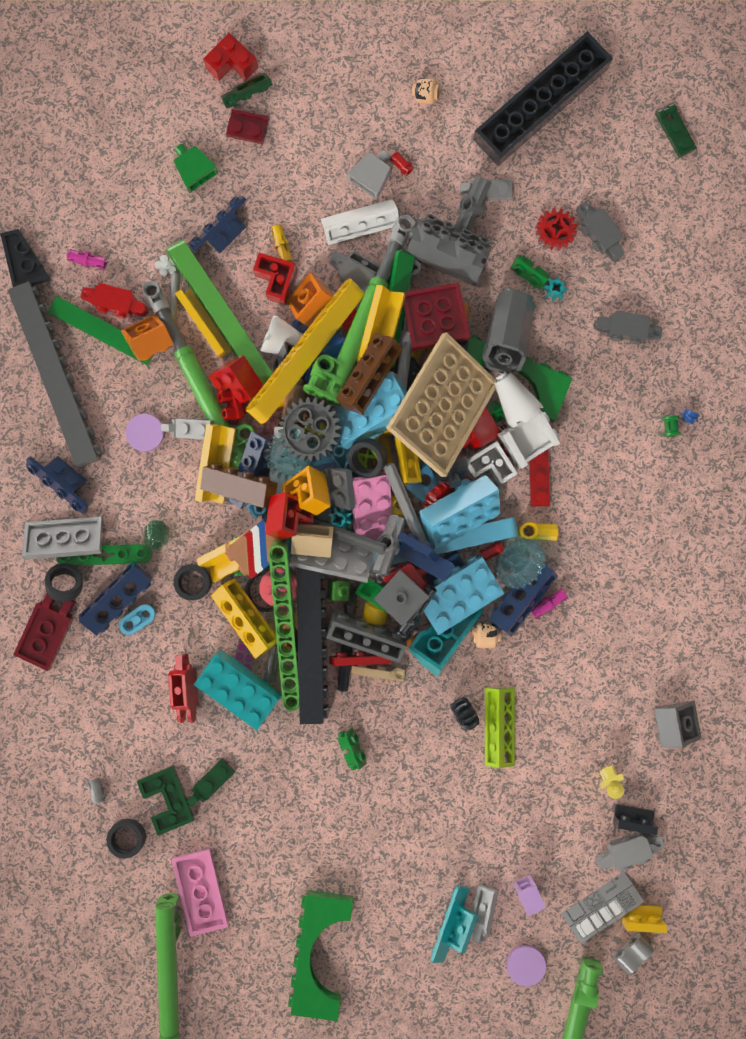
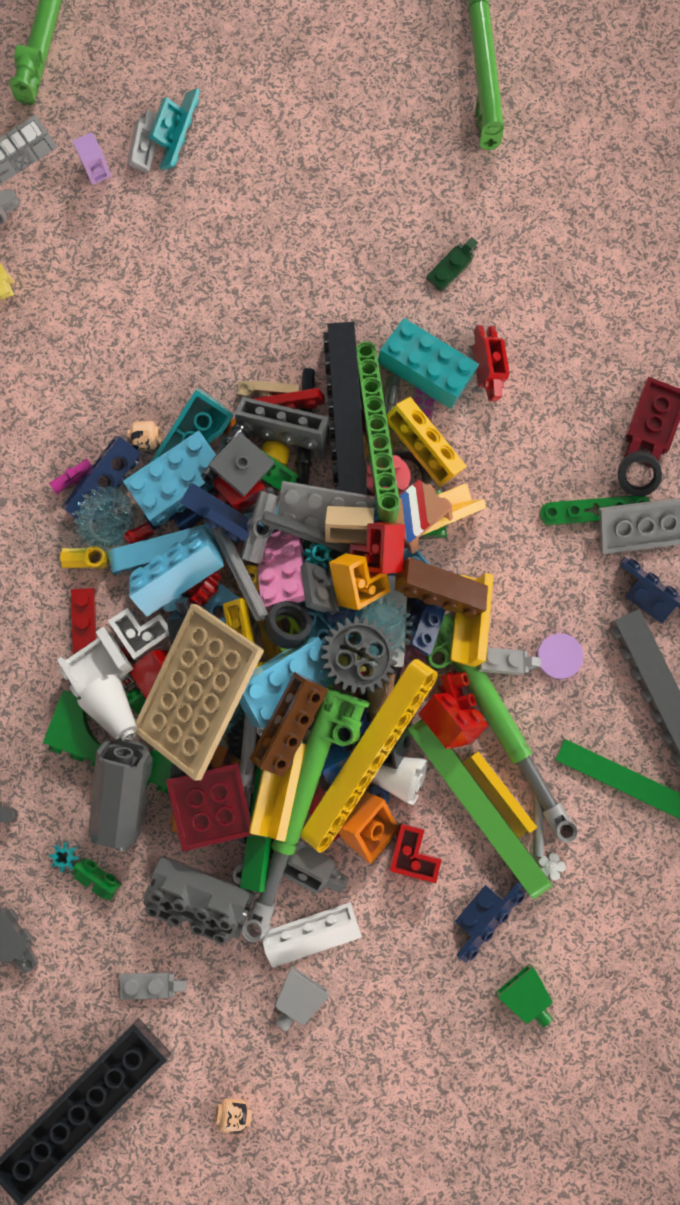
camera: 175 degrees right, 5 degrees down
(86, 259) = (650, 869): dark pink pin -> none
(89, 616) = (576, 470): dark blue brick -> none
(96, 791) = (580, 249): light grey pin -> none
(114, 300) = (611, 817): red hinge -> none
(117, 851) = (536, 216): black tyre -> none
(138, 619) = (549, 438): medium azure plate -> none
(147, 337) = (567, 771): orange slope -> none
(156, 534) = (536, 534): clear green head -> none
(178, 580) = (501, 470): black tyre -> none
(178, 810) = (498, 259): dark green plate -> none
(200, 892) = (456, 151): bright pink plate -> none
(230, 54) = (491, 1153): red brick -> none
(246, 90) = (465, 1107): dark green hinge -> none
(247, 126) = (462, 1056): dark red plate -> none
(281, 243) = (409, 900): yellow pin -> none
(309, 995) = (322, 134): green arch -> none
(338, 590) = (318, 476): bright green bracket -> none
(355, 757) = (291, 298): green hinge -> none
(401, 163) = (261, 1014): red pin -> none
(464, 714) = (167, 347): black gear -> none
(472, 204) = (169, 960): dark grey piece -> none
(496, 727) = (130, 335): lime fence -> none
(526, 965) = (95, 92): lavender tile -> none
(563, 229) = (59, 944): red gear -> none

